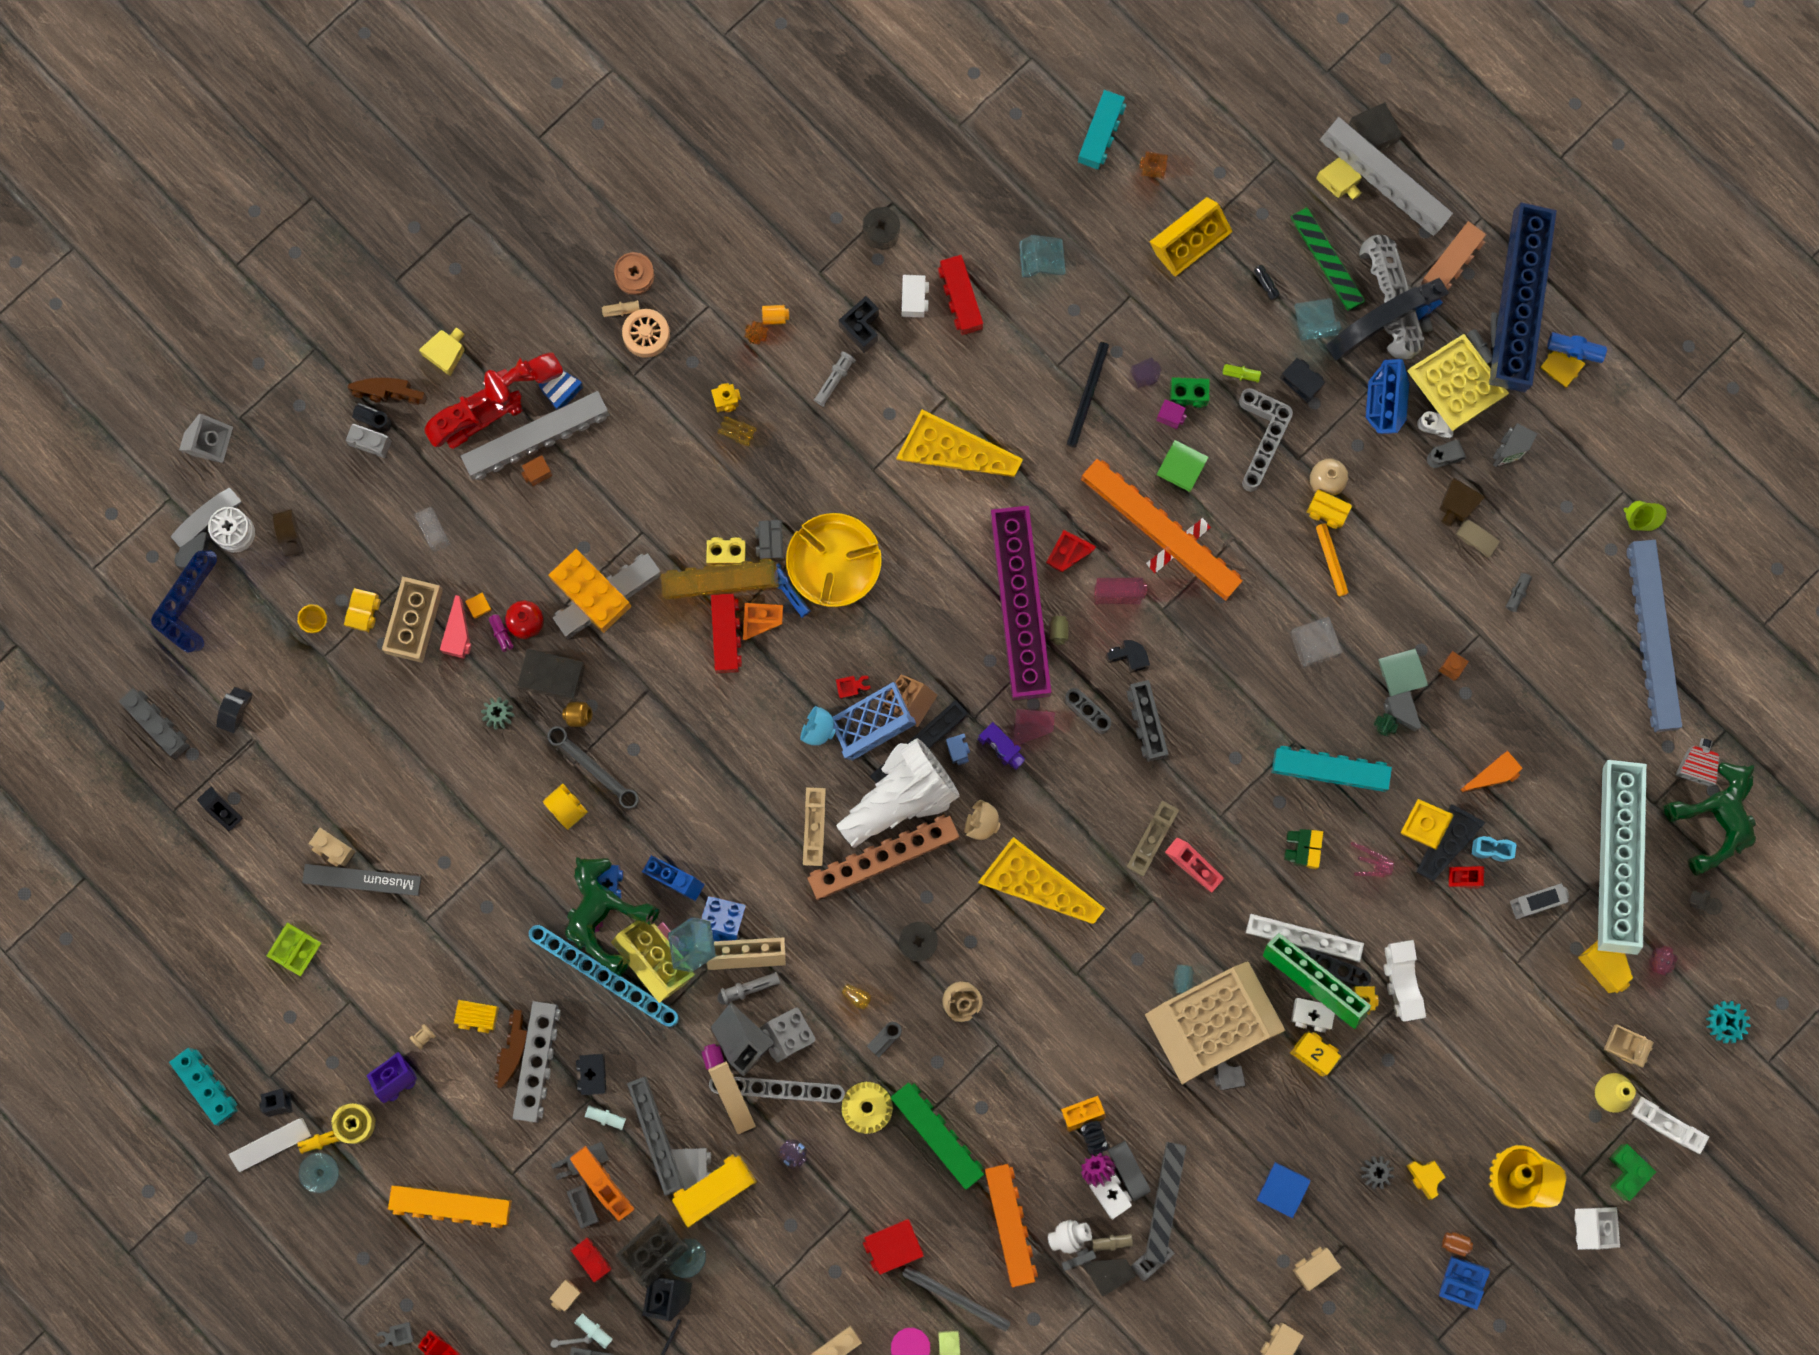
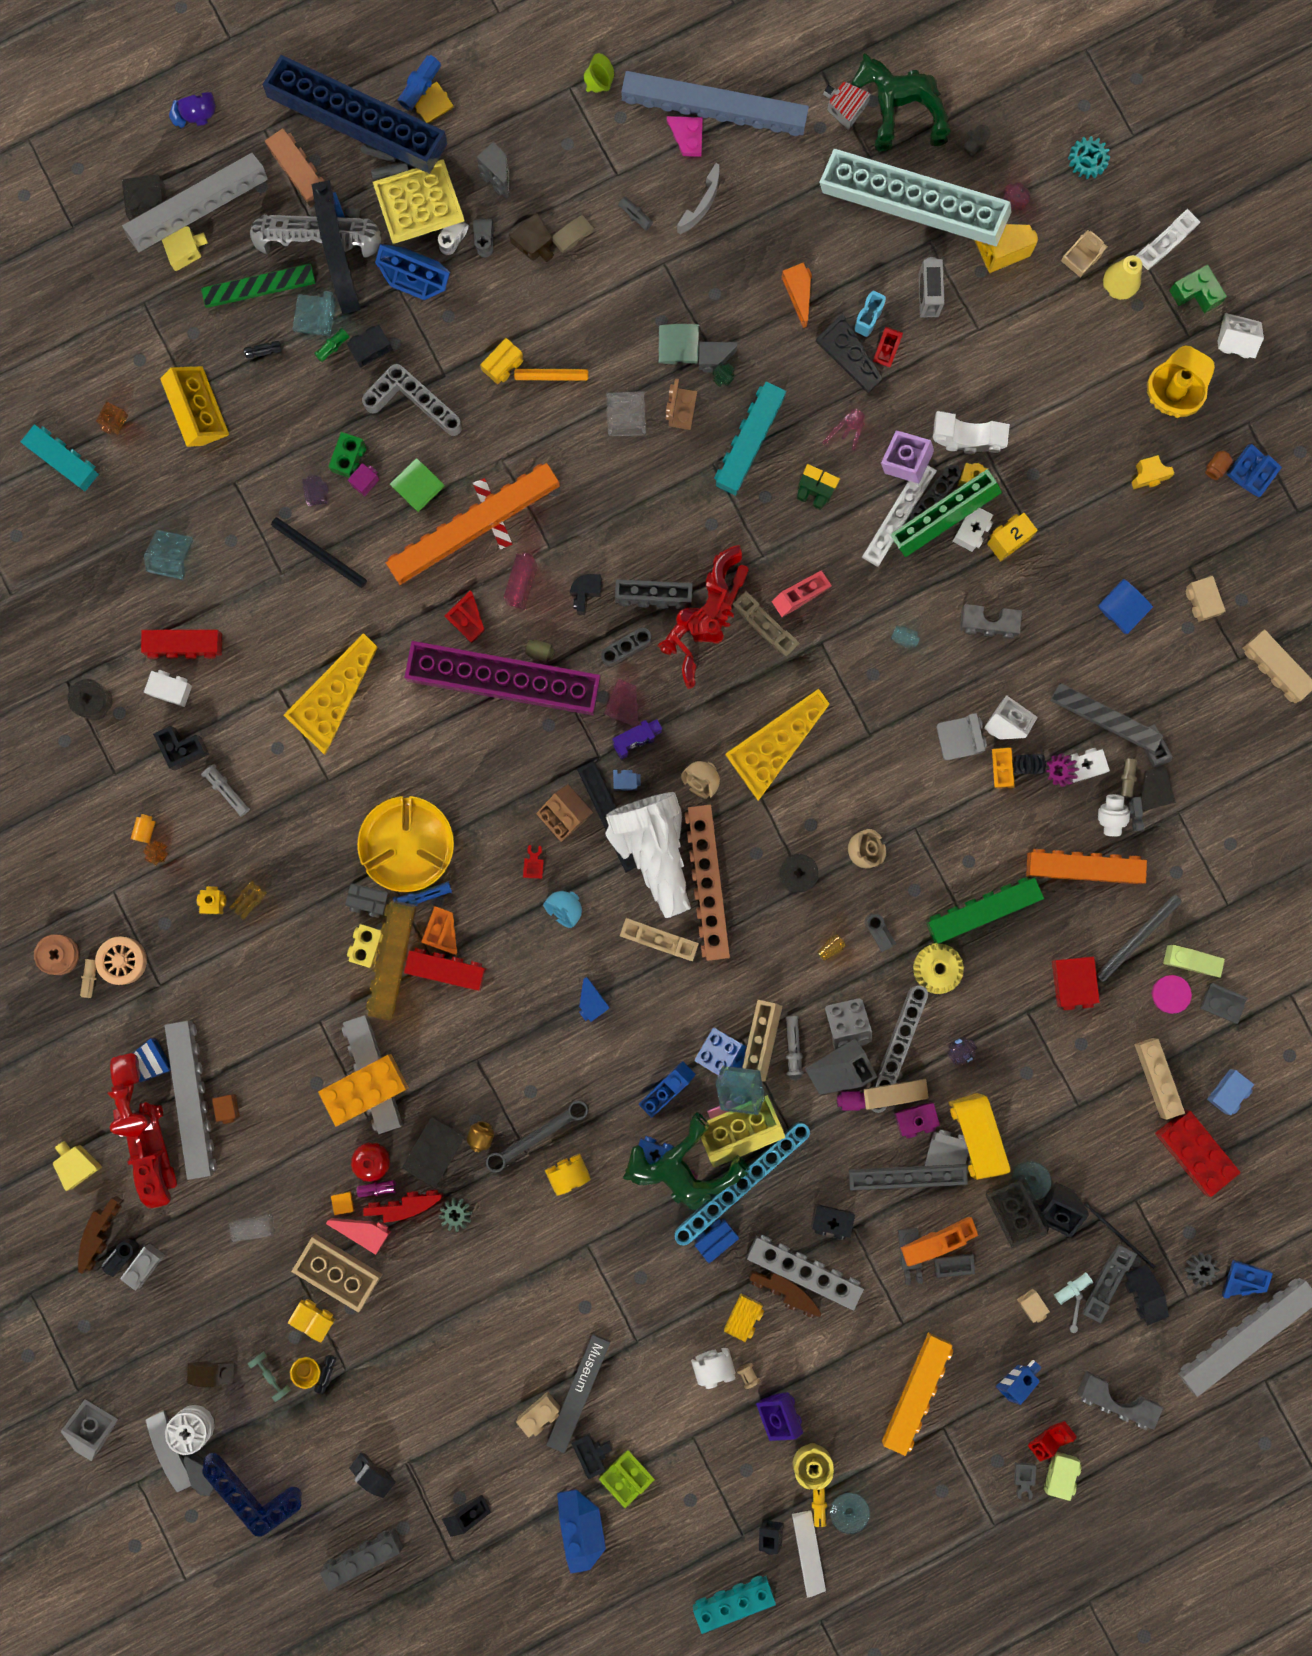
camera: 70 degrees left, 5 degrees up
(233, 919) = (580, 1530): none -> blue wedge
(299, 587) = (269, 1376): none -> sand green wheel
(307, 909) = (591, 1454): none -> black hinge
(315, 638) = (326, 1371): none -> black axle
(421, 999) = (713, 1368): none -> white brick
(482, 1296) = (1020, 1382): none -> blue torso
(494, 669) = (411, 1205): none -> red slope
(542, 967) = (716, 1240): none -> blue brick
(591, 1259) = (1007, 1271): red brick -> none
(605, 1117) = (876, 1220): light aqua pin -> none
(713, 1128) = (917, 1119): none -> magenta brick
(736, 780) = (591, 1001): none -> blue slope
(878, 736) = (591, 853): medium blue fence -> none
(1100, 1062) = (961, 737): none -> light grey bracket
(1129, 1170) = (1068, 742): dark grey beam -> none
(1133, 1107) = (1010, 720): none -> white slope
(1136, 781) = (707, 621): none -> red piece
(1214, 1021) = (956, 620): tan slope -> none
(1242, 373) = (344, 400): lime axle -> none
(1292, 344) = (331, 345): none -> green pin
(1329, 476) = (470, 351): tan cylinder -> none
(1341, 692) = (682, 406): none -> medium nougat bracket
(1362, 927) = (907, 456): none -> lavender brick
(1382, 1176) = (1139, 512): dark grey gear -> none
(1427, 824) = (827, 367): yellow tile -> none
(1453, 666) = (687, 295): dark orange brick -> none
(1468, 130) = (175, 116): none -> blue arm
(1478, 150) = (197, 108): none -> dark purple cylinder
(1529, 646) = (691, 219): none -> light grey slope
(1615, 619) = (687, 133): none -> dark pink wing

